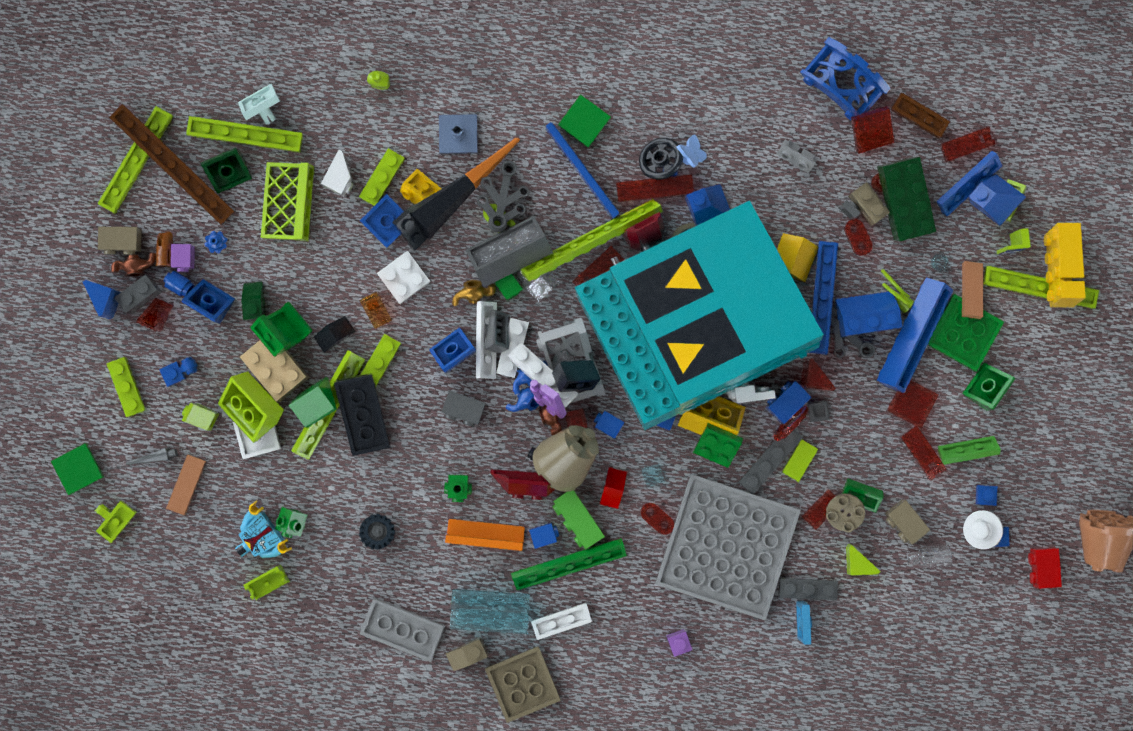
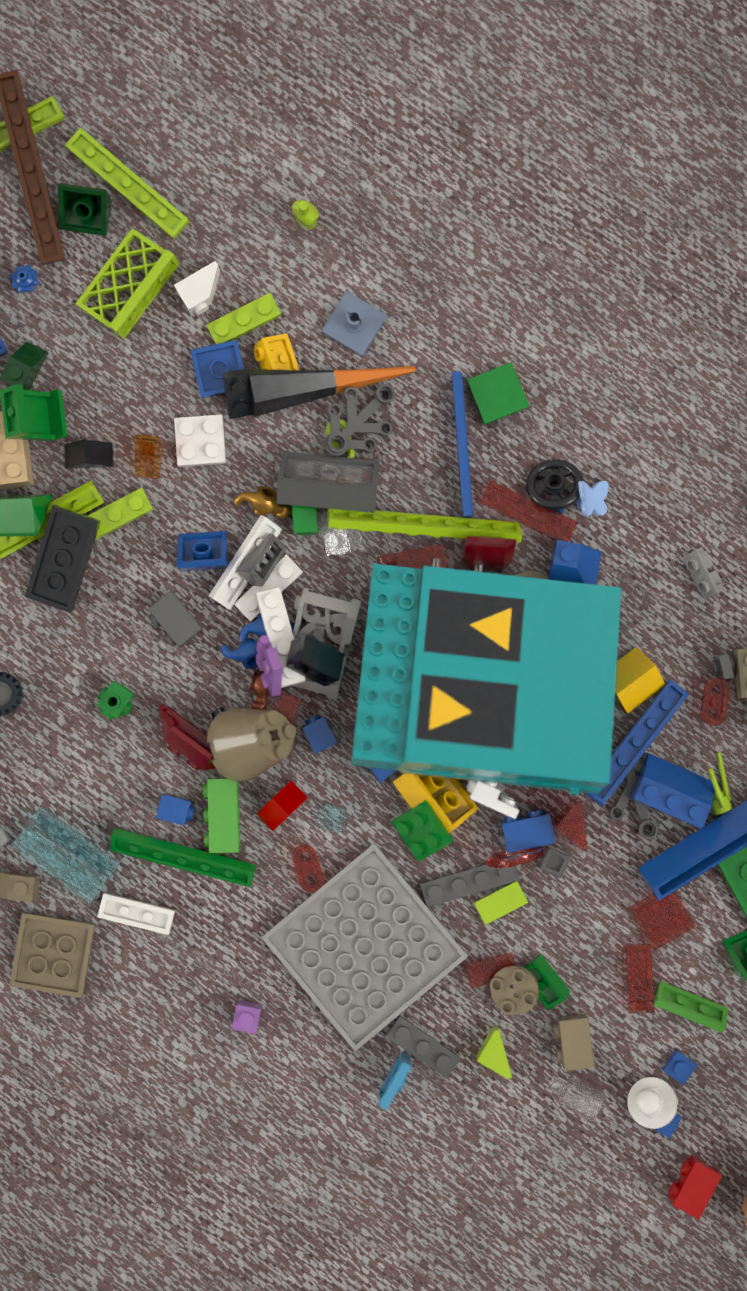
camera: 35 degrees right, 0 degrees up
(259, 103) = (163, 159): light aqua tile -> none
(485, 534) = (113, 769): orange panel -> none

